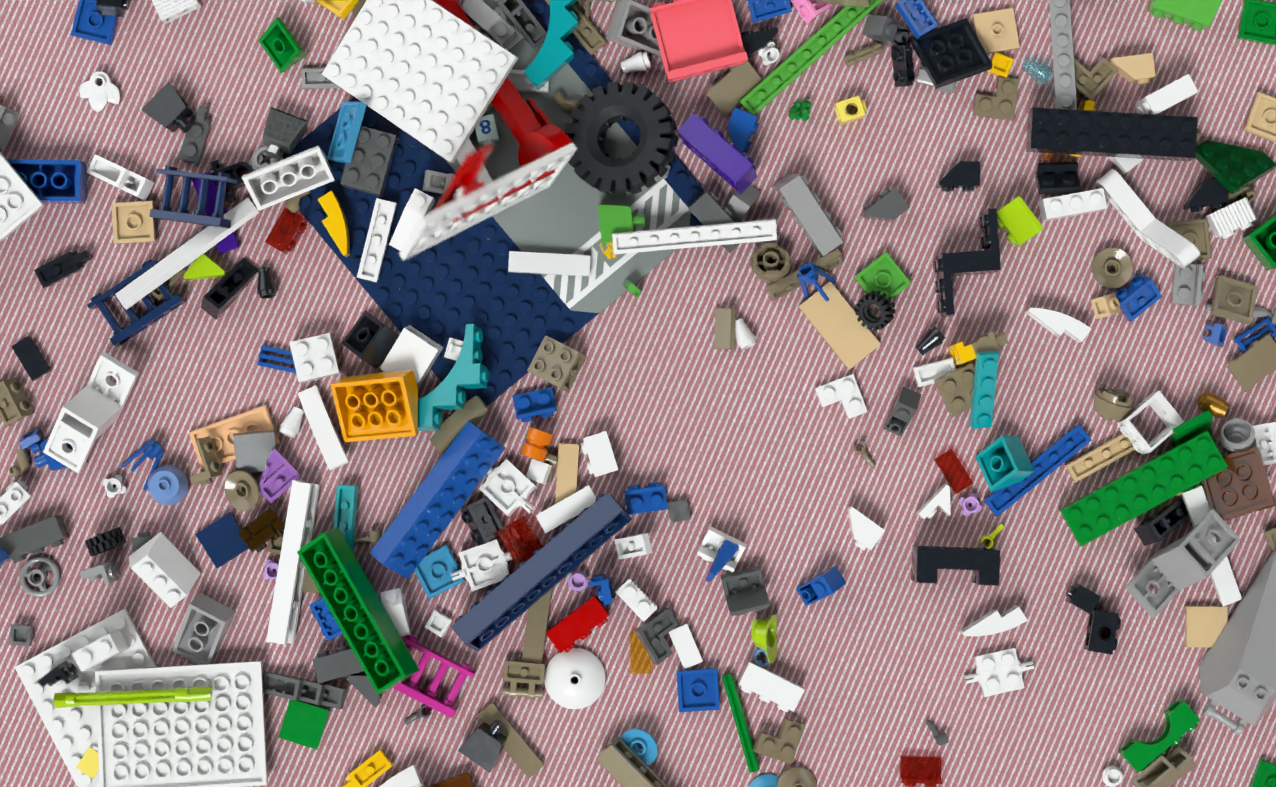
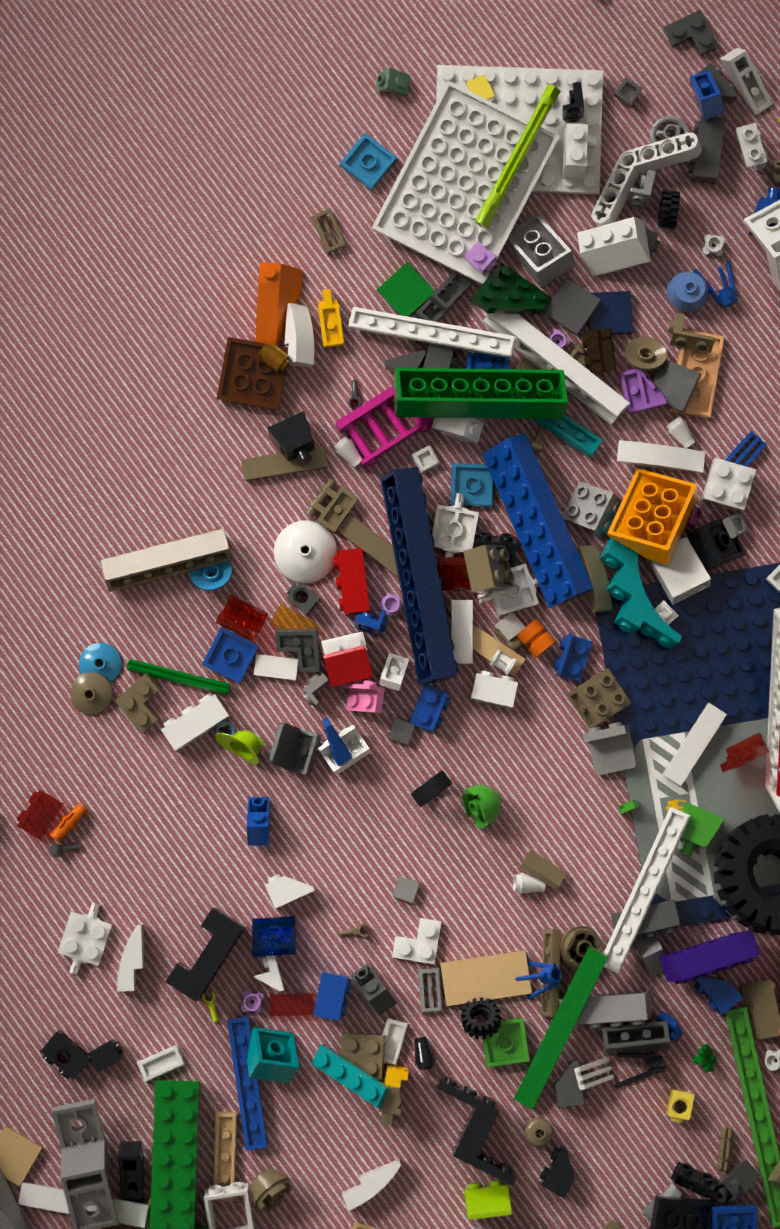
camera: 120 degrees right, 5 degrees down
(138, 591) = (608, 212): none -> white beam
(236, 575) = (572, 306): none -> dark grey tile
(240, 676) = (480, 258): none -> lavender bracket
(255, 634) = (509, 293): none -> dark green plate
(327, 680) = (432, 332): none -> white tile
(345, 332) = (735, 525): none -> light grey tile
(360, 370) = (694, 517): none -> magenta tile
(400, 459) = (592, 509): none -> light grey bracket
(469, 692) = (348, 451): none -> white cone
(502, 517) = (488, 568): none -> dark tan slope
(532, 218) = (744, 752): none -> clear red bracket
(572, 460) = (505, 667): none -> white bush
(593, 330) = (611, 748): none -> light grey bracket
(613, 648) = (311, 602): none -> dark grey brick
(651, 587) = (347, 665): none -> red slope
(662, 698) = (242, 618): none -> clear red bracket
(669, 558) = (364, 697): none -> bright pink bracket
(681, 605) = (315, 684): none -> light grey bracket
(699, 409) = (482, 804): none -> bright green cylinder
(712, 459) = (431, 788): none -> black tyre
(788, 153) = (673, 1025): none -> blue arm
(805, 432) = (406, 889): none -> light grey tile
(818, 175) = (636, 1038): none -> dark grey brick
(831, 149) = (653, 1066): none -> black plant
(844, 241) = (561, 1027): none -> green tile
(857, 186) = (605, 1069): none -> white tile
(889, 355) = (430, 992): none -> light grey tile
(908, 518) = (273, 936): none -> clear blue tile
(913, 741) = (69, 822): none -> orange pin
(929, 442) = (331, 996): none -> blue brick
(931, 211) = (534, 1125): none -> dark tan head
(1062, 550) = (161, 1063): none -> white tile

